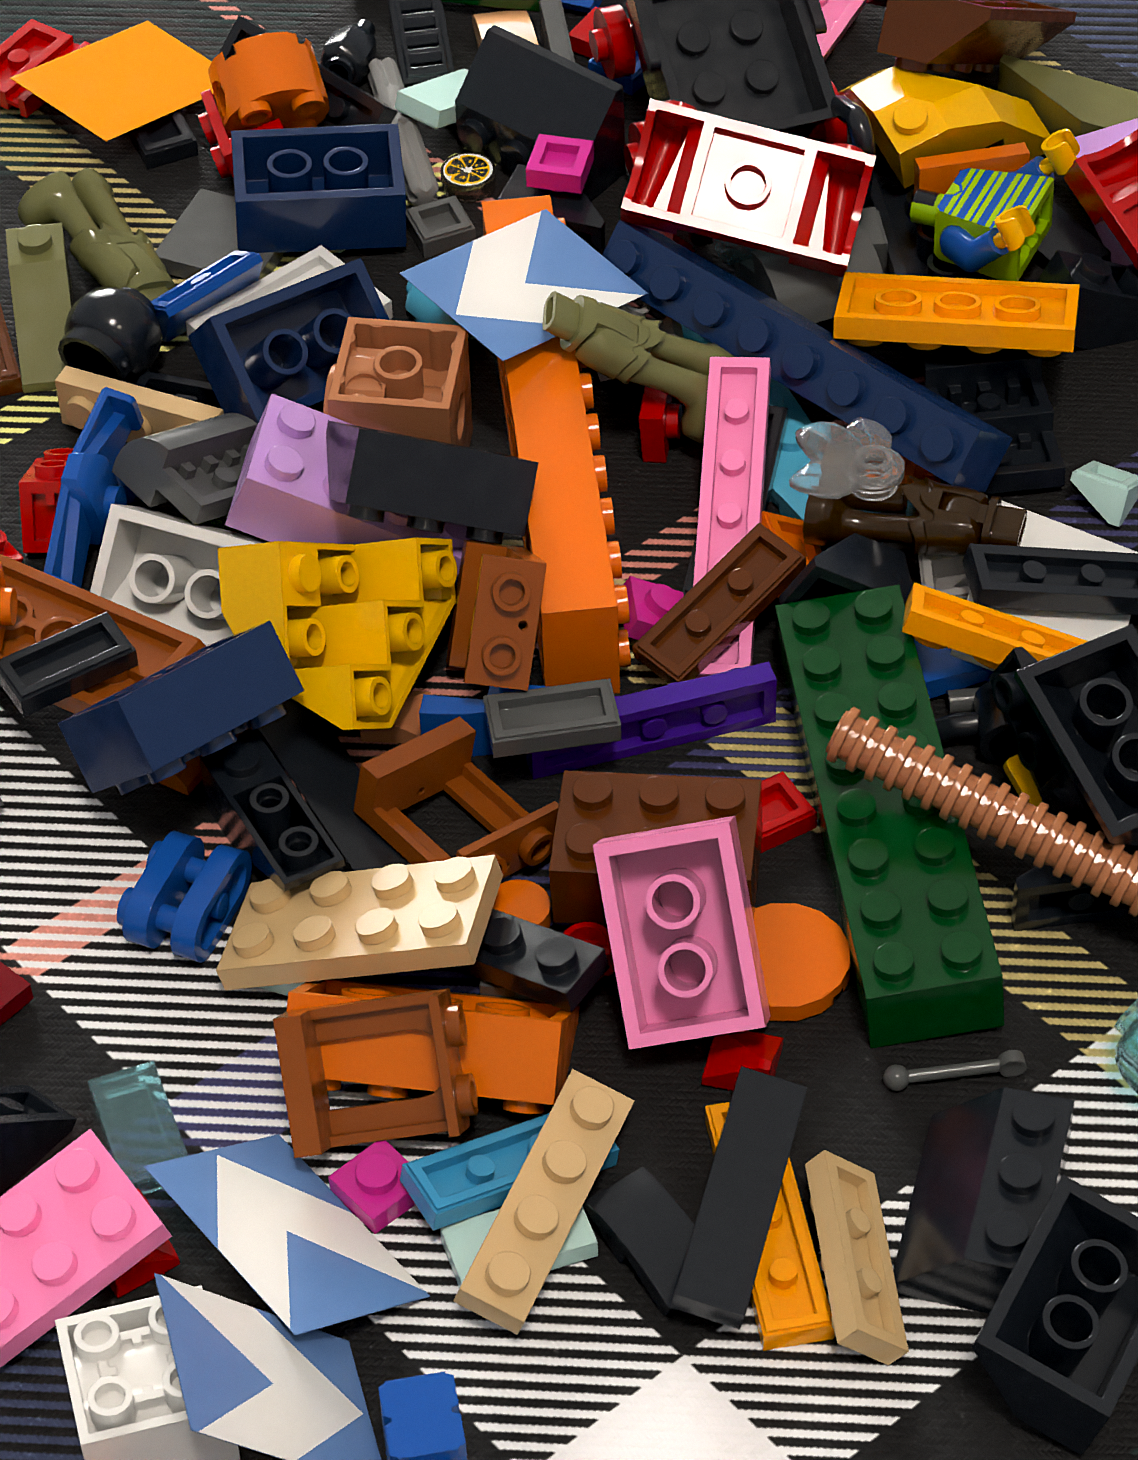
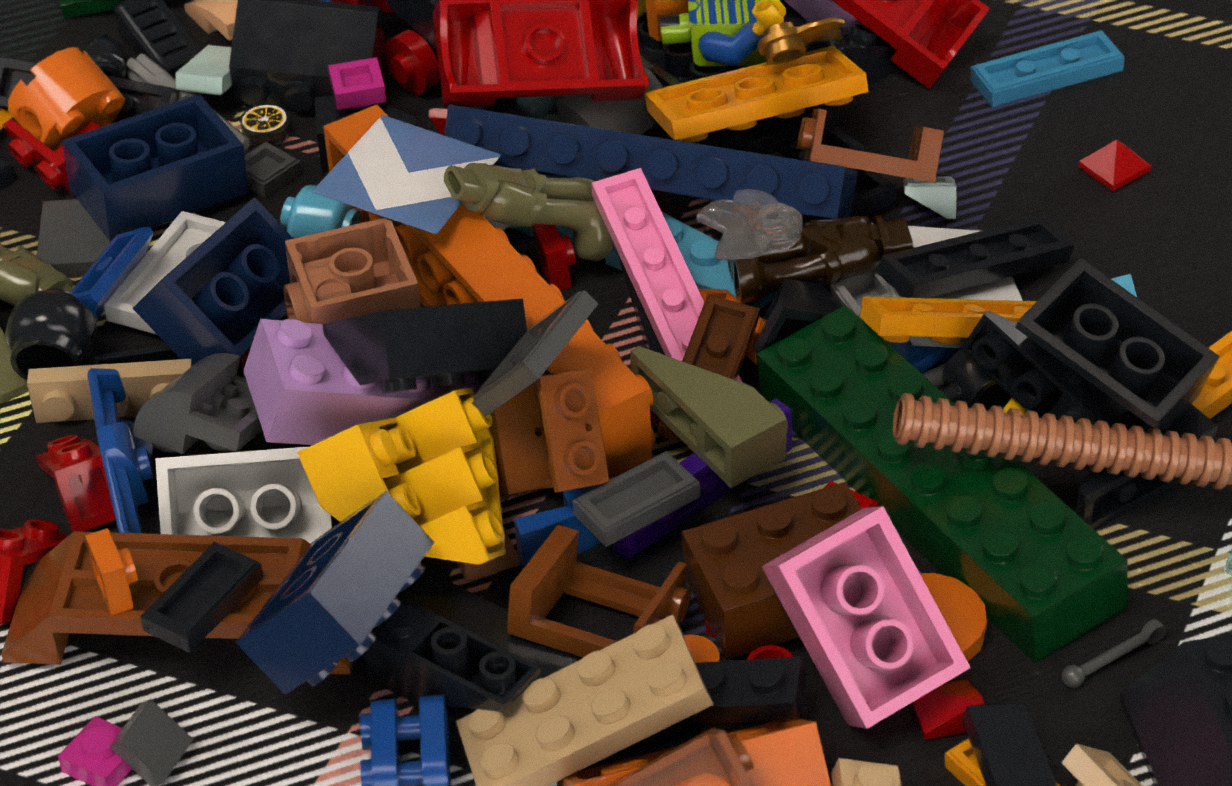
camera: 25 degrees left, 5 degrees down
(506, 525) = (534, 352): none -> dark grey tile
(681, 660) = (714, 416): none -> olive slope
(1016, 267) = (787, 43): none -> pearl gold plate
(1073, 454) = (920, 165): none -> dark orange panel

